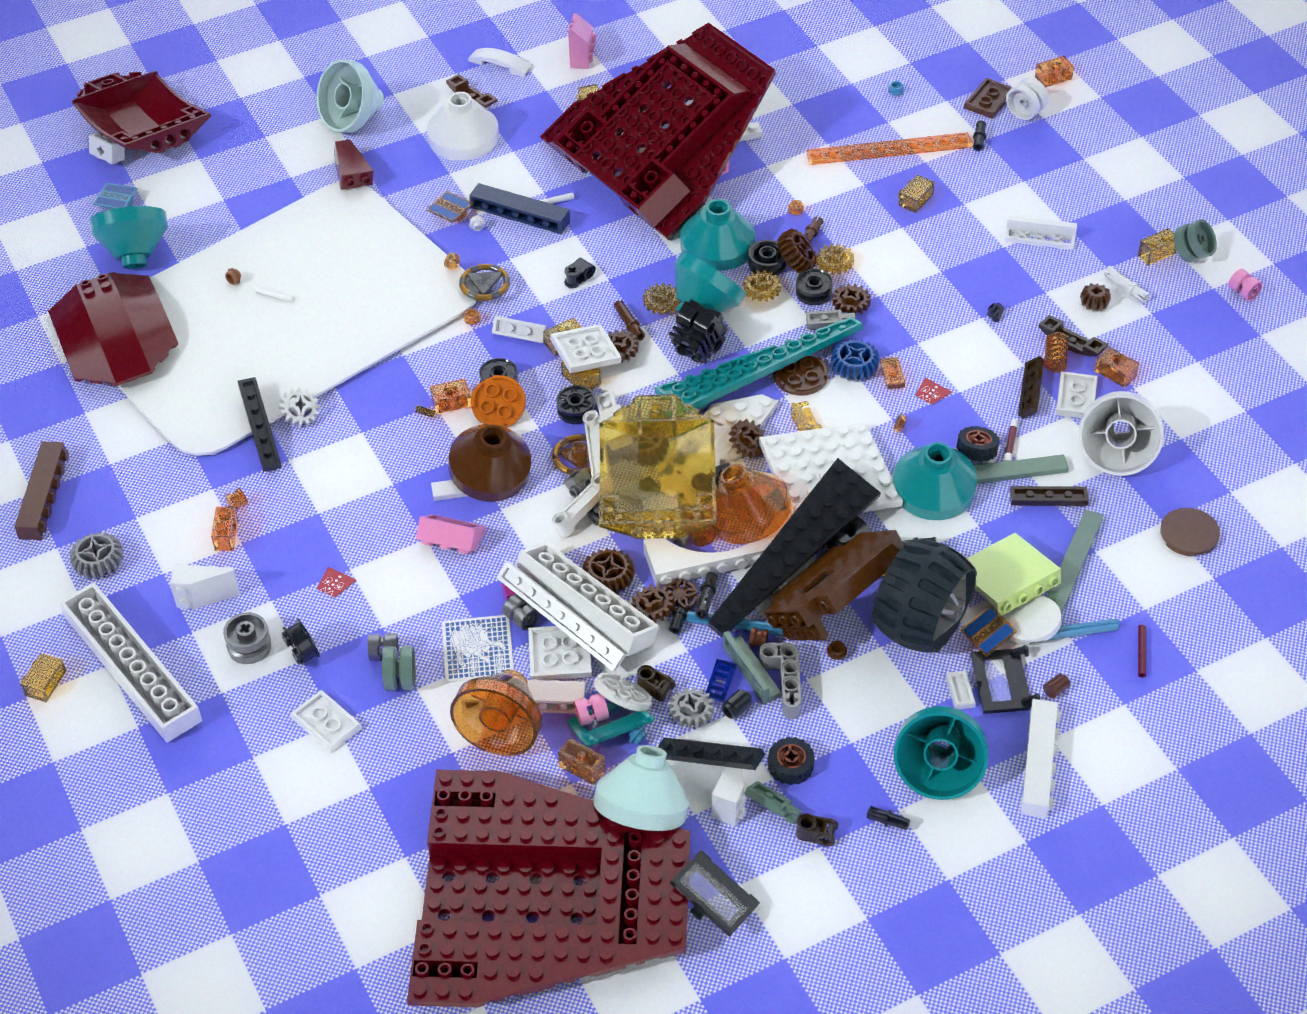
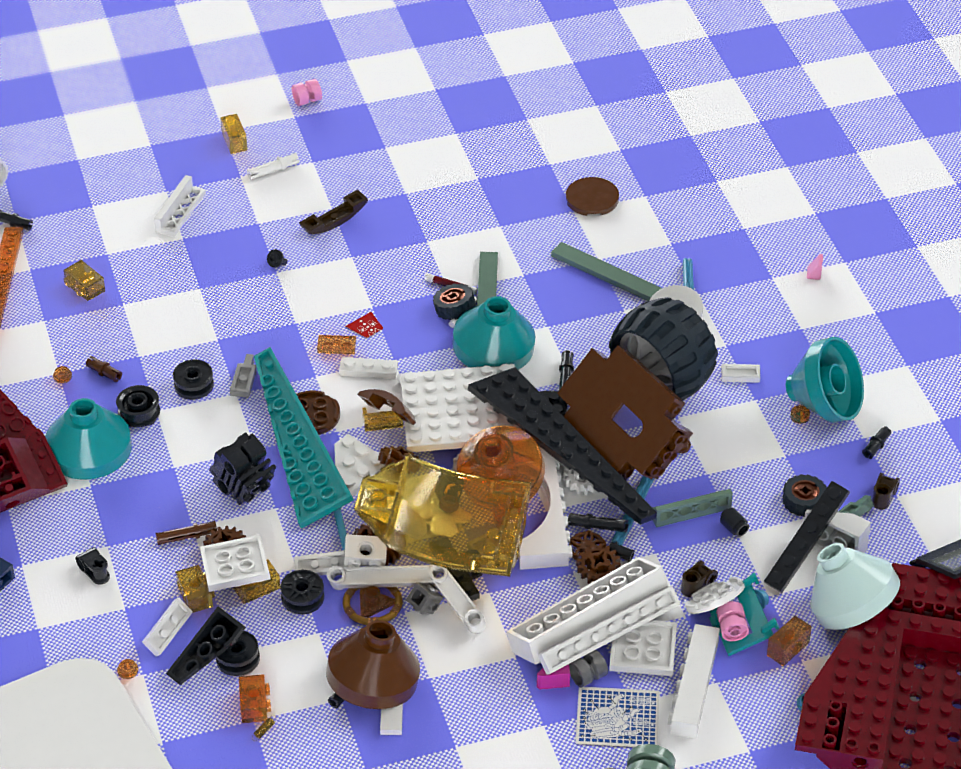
camera: 80 degrees left, 5 degrees down
(449, 533) = (460, 718): bright pink slope -> none
(452, 261) = (36, 670): clear orange tile -> none
(484, 282) = (81, 647): piece -> none
(495, 350) = (211, 640): none -> black wedge
(497, 713) = (735, 680): clear orange cone -> none
(498, 401) = (280, 655): orange tile -> none
(610, 568) = (544, 590): reddish brown gear -> none
(660, 298) = (164, 500): clear yellow gear -> none
(691, 707) = (732, 555): light grey gear -> none
(705, 285) = (182, 452): teal cone -> none
(725, 666) = (689, 531): clear blue slope -> none
(758, 637) = (657, 494): copper wheel -> none
(762, 285) = (176, 418): clear yellow gear -> none
(786, 659) = (709, 480): light grey beam -> none
(796, 250) = (145, 376): reddish brown gear -> none
(807, 418) = (377, 397): none -> reddish brown slope
(835, 258) = (157, 356): clear yellow gear -> none
(849, 299) = (223, 354): gear -> none
(850, 359) = (310, 367): blue gear -> none
(872, 402) = (368, 367): none -> white plate
(900, 423) = (407, 350): tile -> none
(1002, 680) = (741, 345): black piece -> none
(1013, 573) = (611, 301): yellowish green panel -> none
(1031, 387) = (389, 254): dark brown plate -> none
(1039, 758) = (808, 329): white brick -> none
(1049, 495) = (529, 271): plate -> none
(1056, 352) = (351, 229): clear orange piece -> none
(1056, 685) = (750, 310): reddish brown piece -> none
(1075, 394) = (405, 229): white tile -> none
(1095, 297) = (284, 188): reddish brown gear -> none
(1116, 367) = (383, 194): clear orange brick -> none
(1121, 451) = (486, 197): white cone -> none
(1142, 651) = (718, 253): piece -> none
(1149, 740) = (815, 268): none -> bright pink slope
(1195, 241) = (246, 103): sand green wheel -> none

